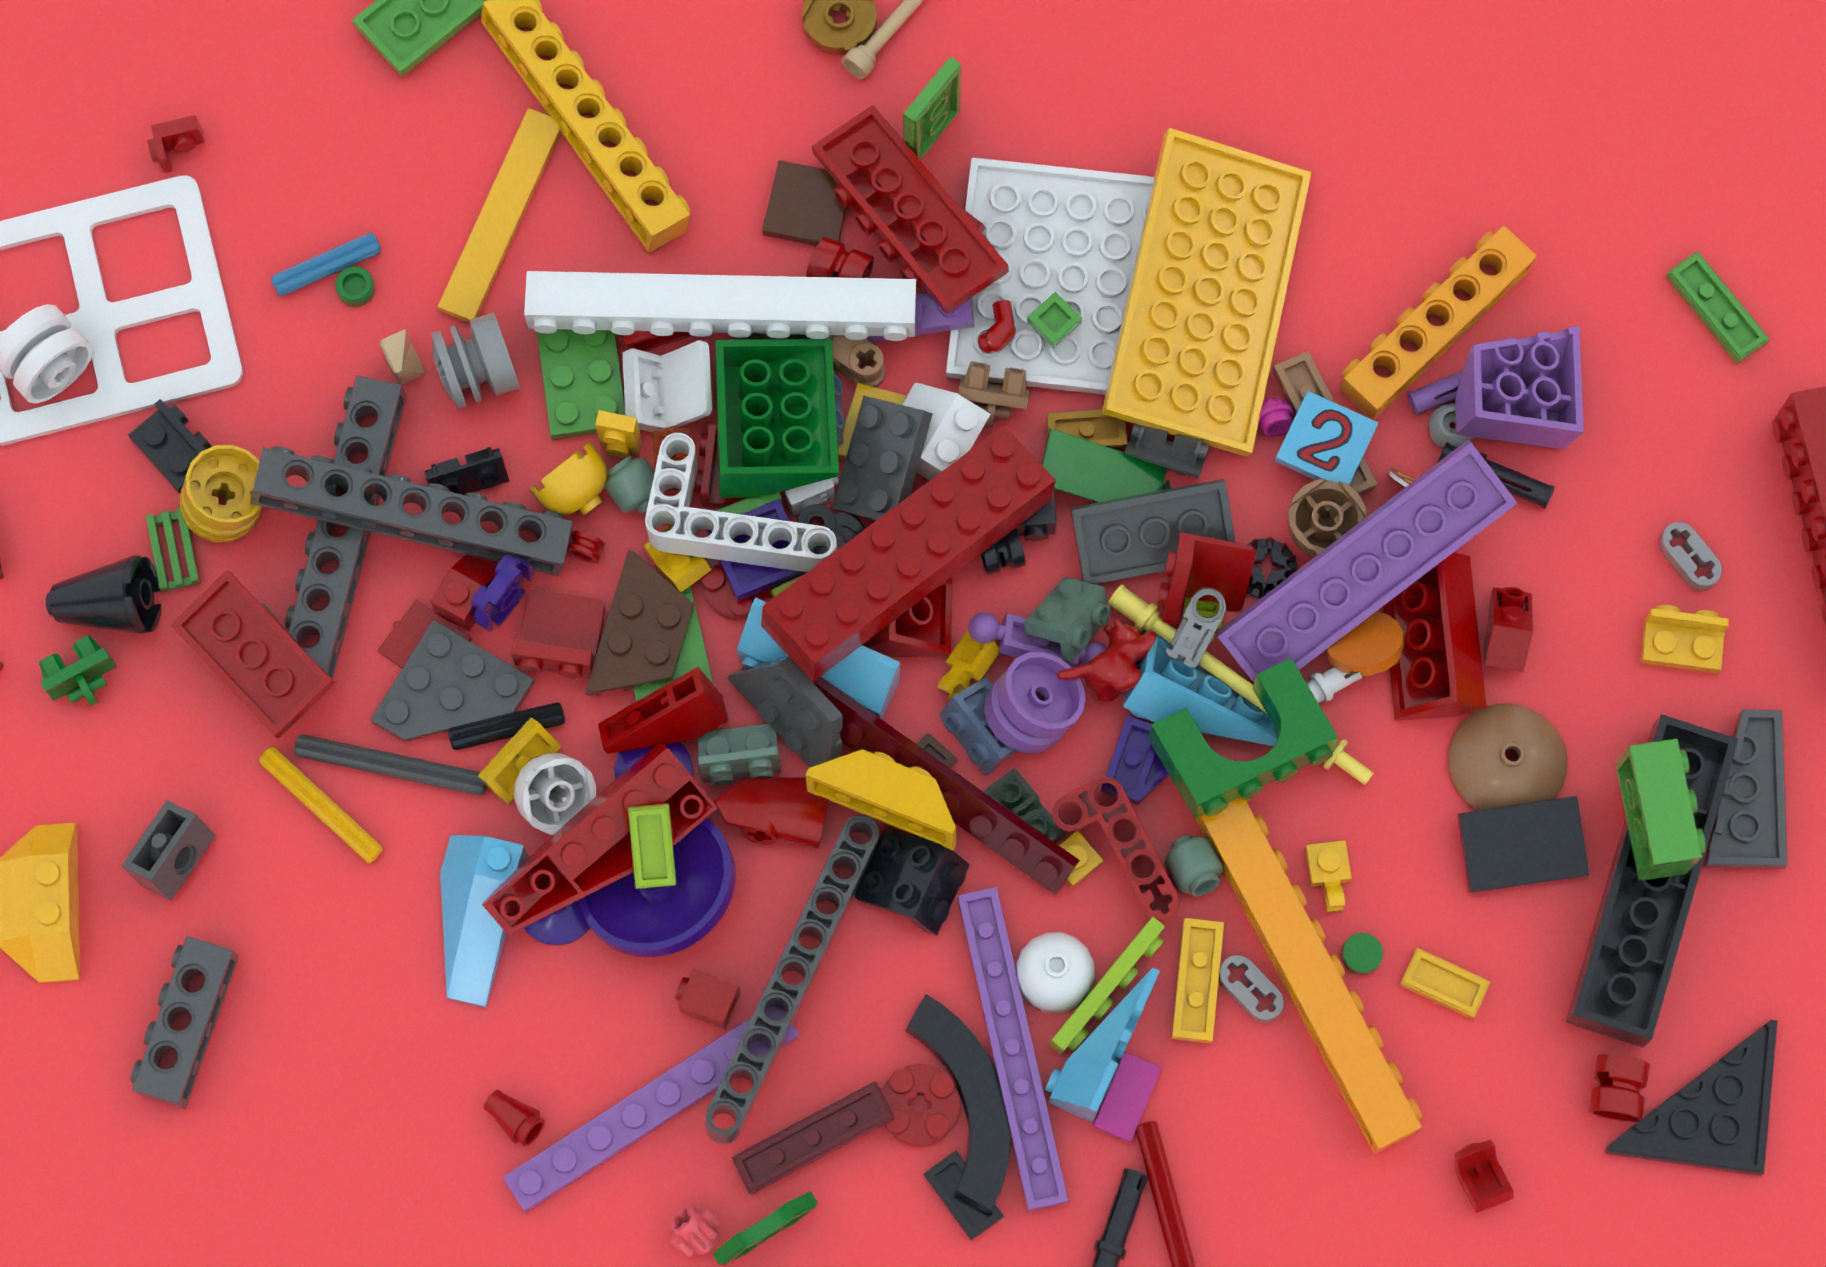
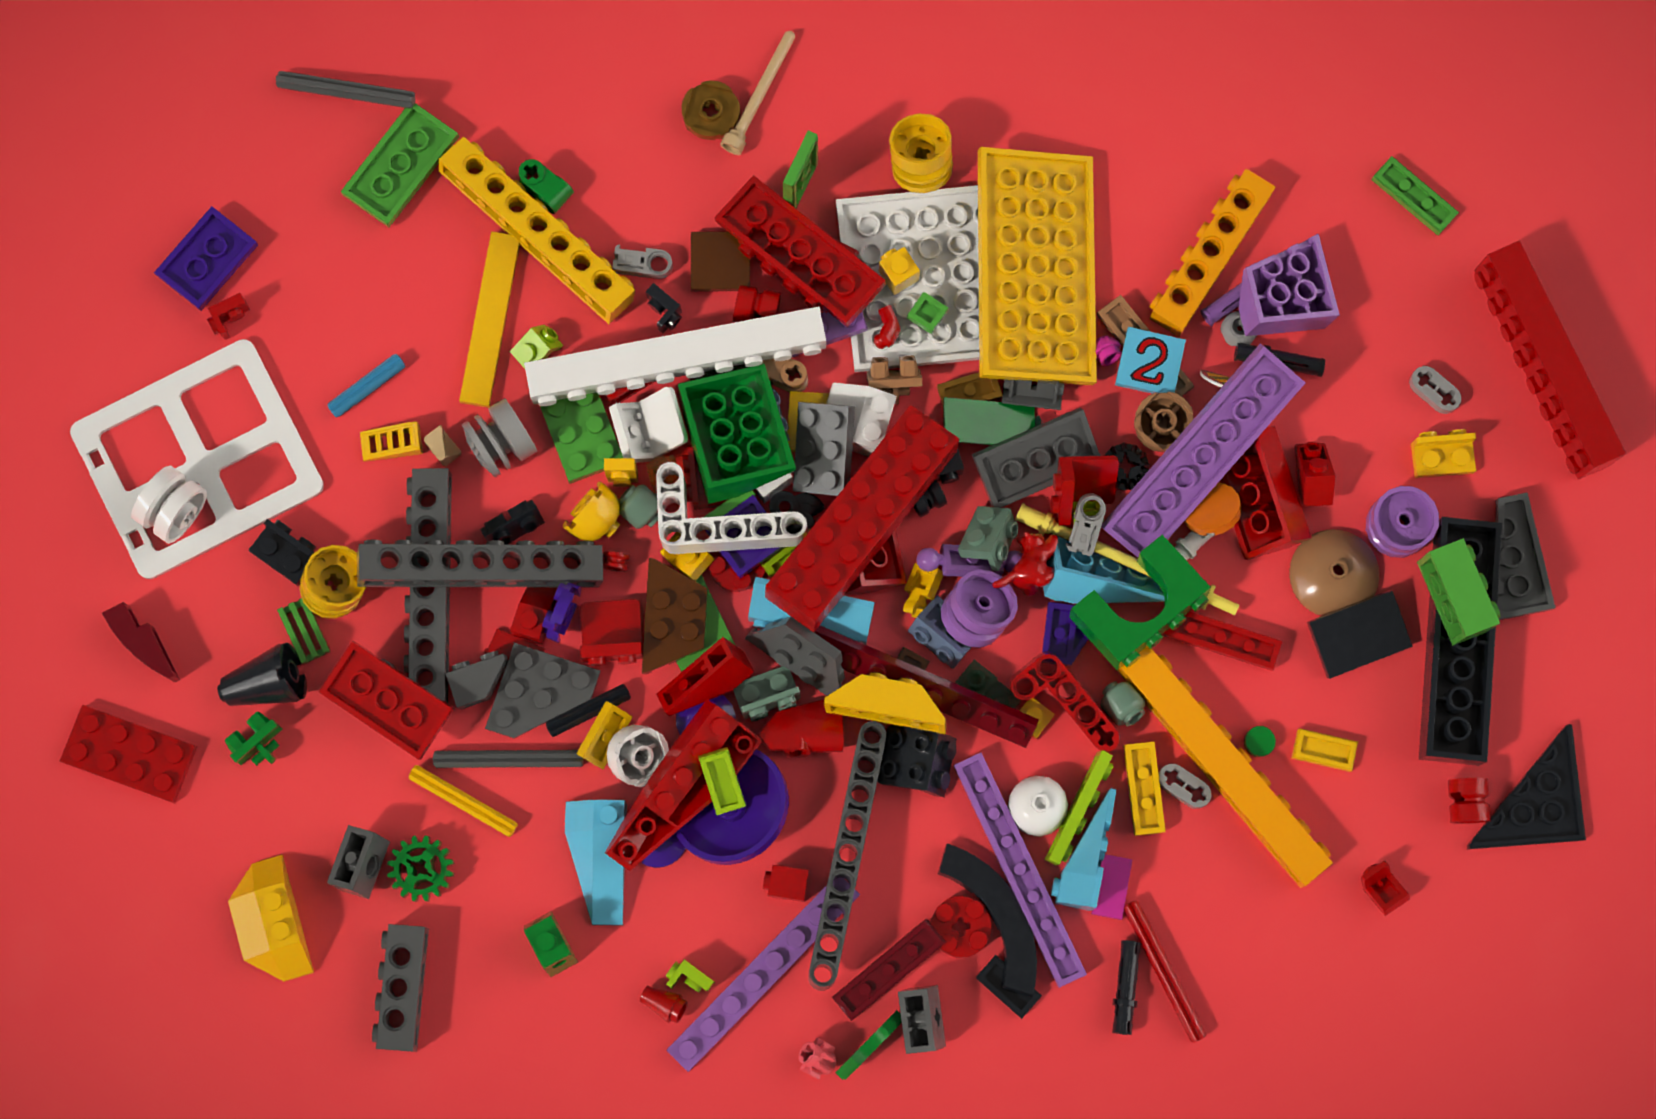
camera: 15 degrees left, 5 degrees up
(165, 67) = (206, 258): none -> dark purple plate
(256, 866) = (413, 881): none -> green gear
(355, 286) = (392, 398): green tile -> none
(355, 326) = (415, 448): none -> yellow slope
(374, 659) = (477, 681): none -> dark grey slope
(386, 1009) = (550, 944): none -> green torso
(552, 254) = (536, 344): none -> lime bracket
(561, 1093) = (695, 978): none -> lime bracket
(610, 67) = (547, 187): none -> green piece
(704, 185) = (639, 262): none -> light grey piece
(721, 238) = (662, 302): none -> black bracket
(840, 1209) = (921, 1019): none -> dark grey brick
(1029, 258) = (898, 270): none -> yellow brick
(1091, 120) = (921, 153): none -> yellow wheel
(1329, 868) = (1221, 683): yellow plate -> none
(1346, 814) = (1227, 640): none -> red plate
(1605, 689) = (1414, 509): none -> medium lavender wheel

